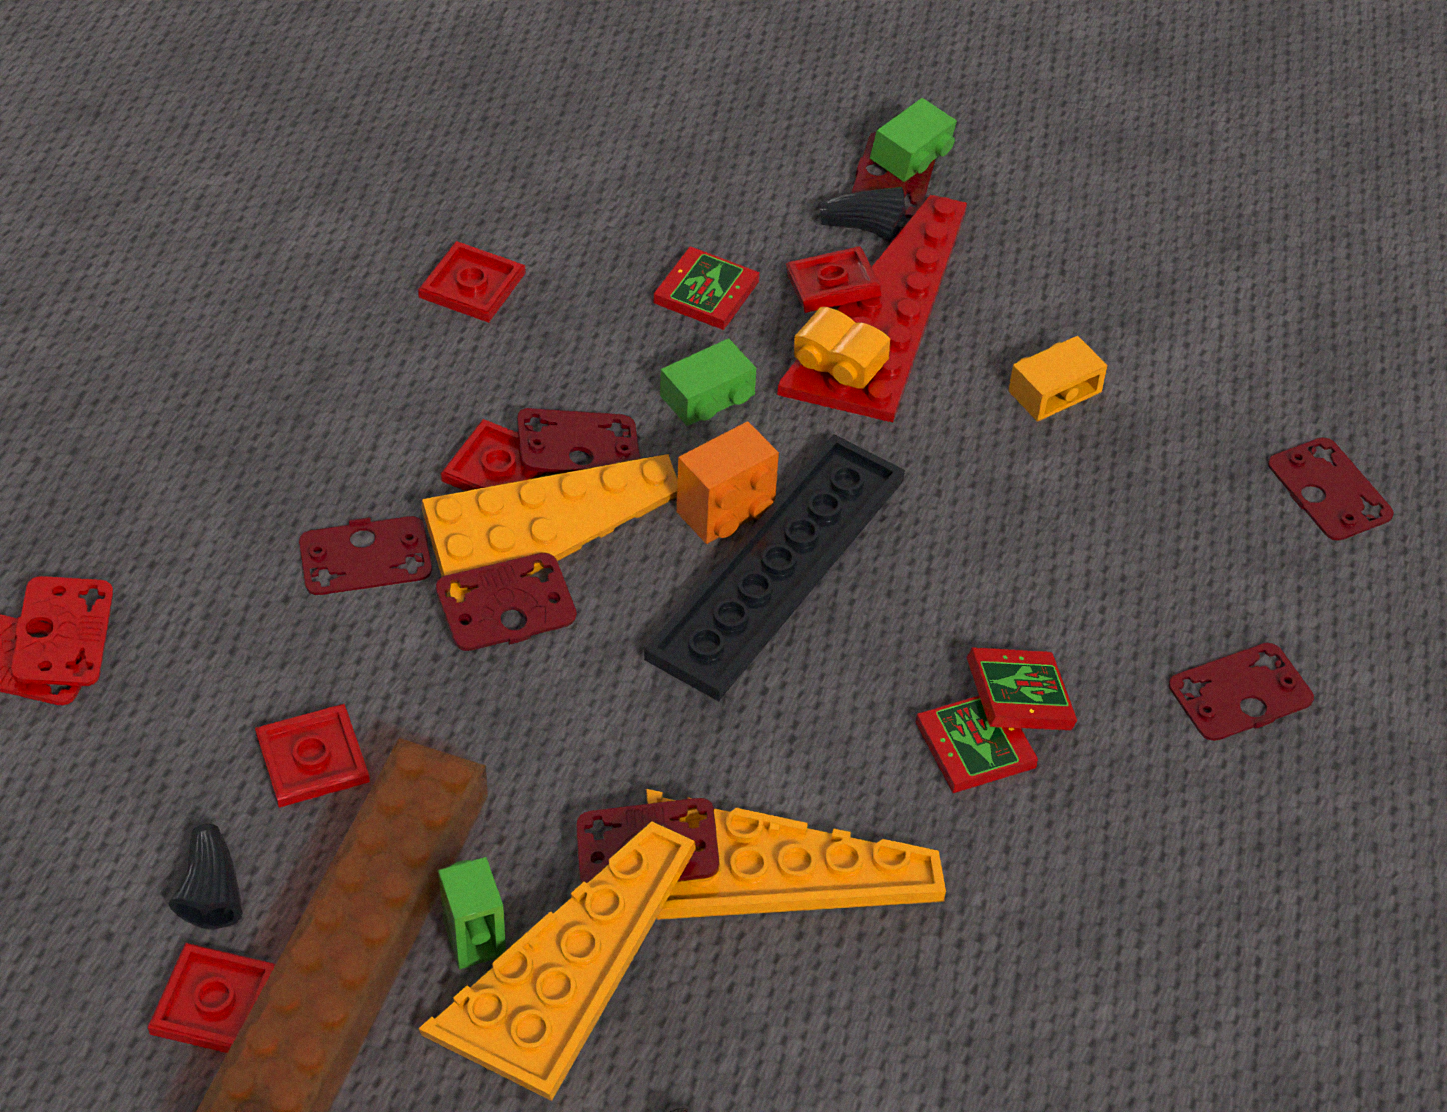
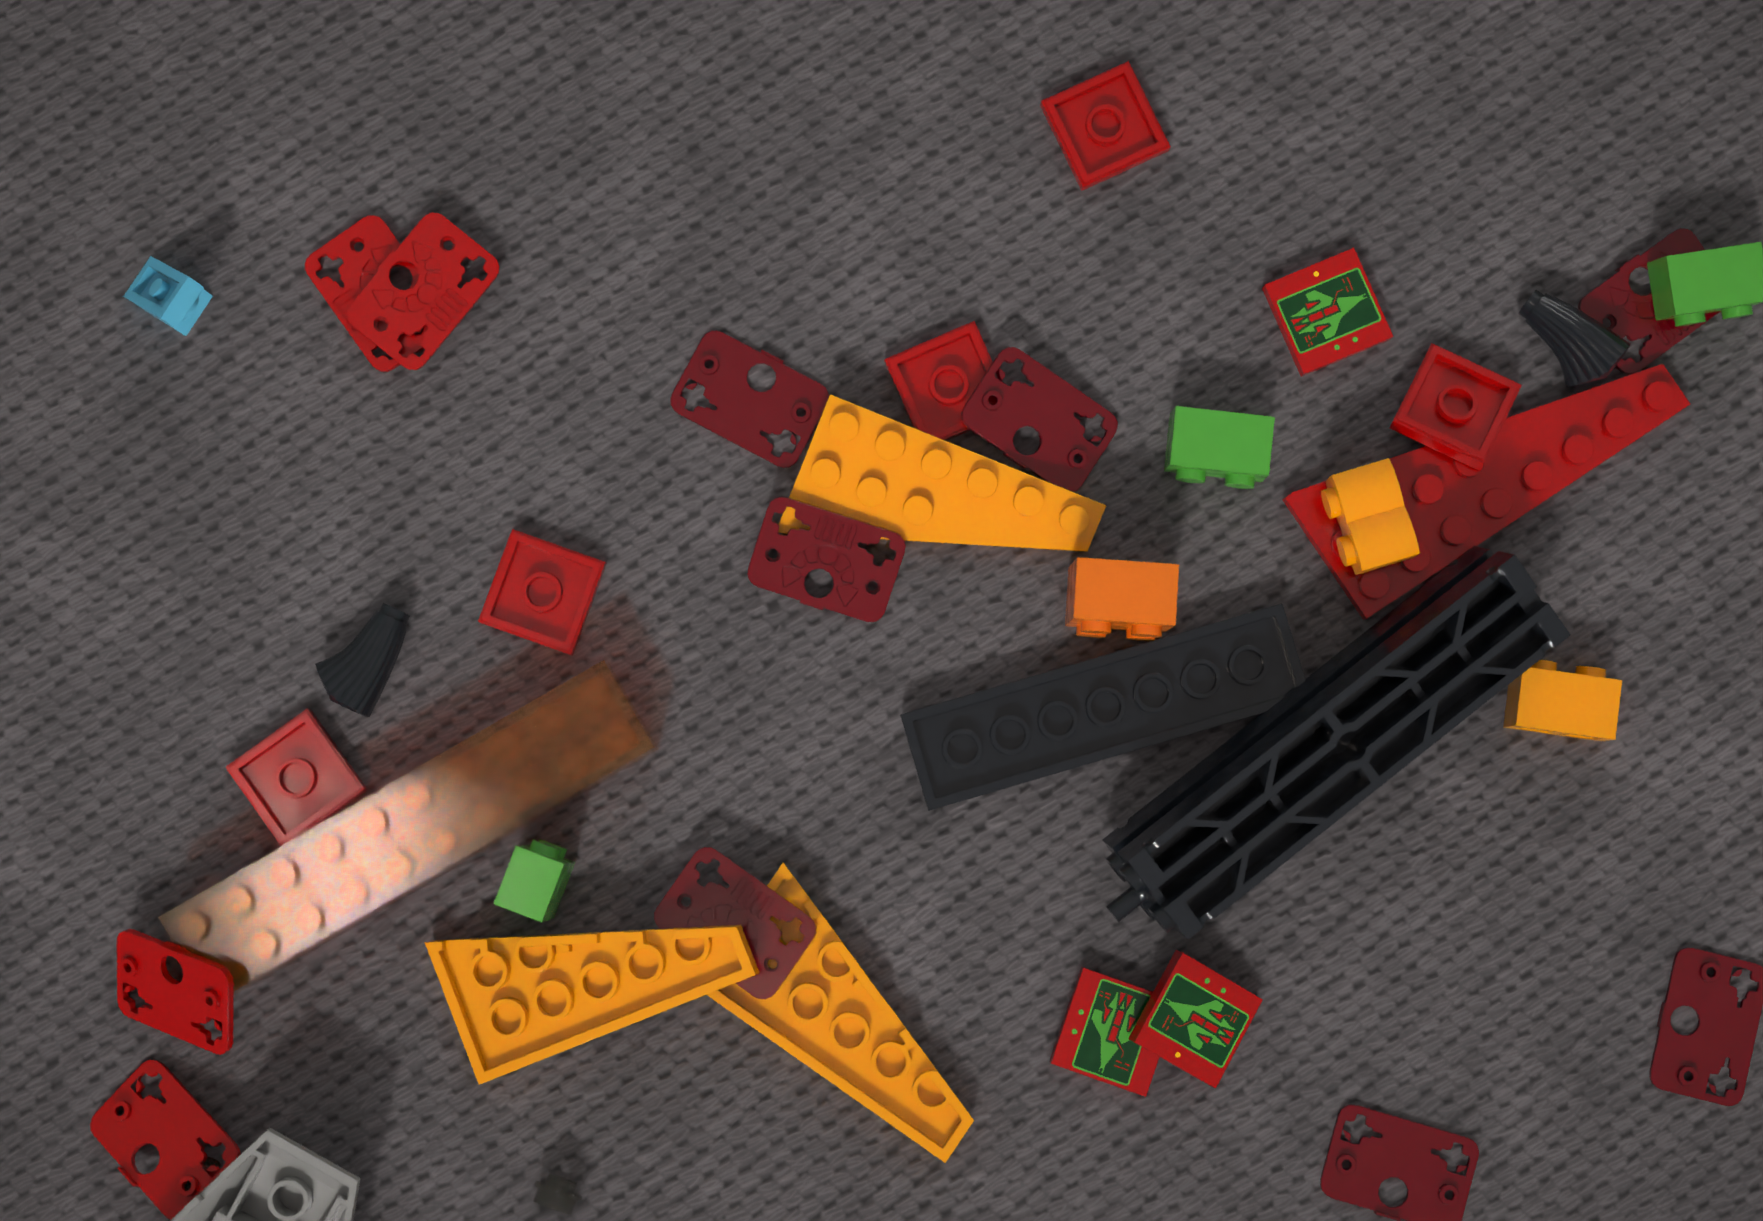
camera: 35 degrees right, 35 degrees up
(939, 476) = (1331, 741): none -> black piece

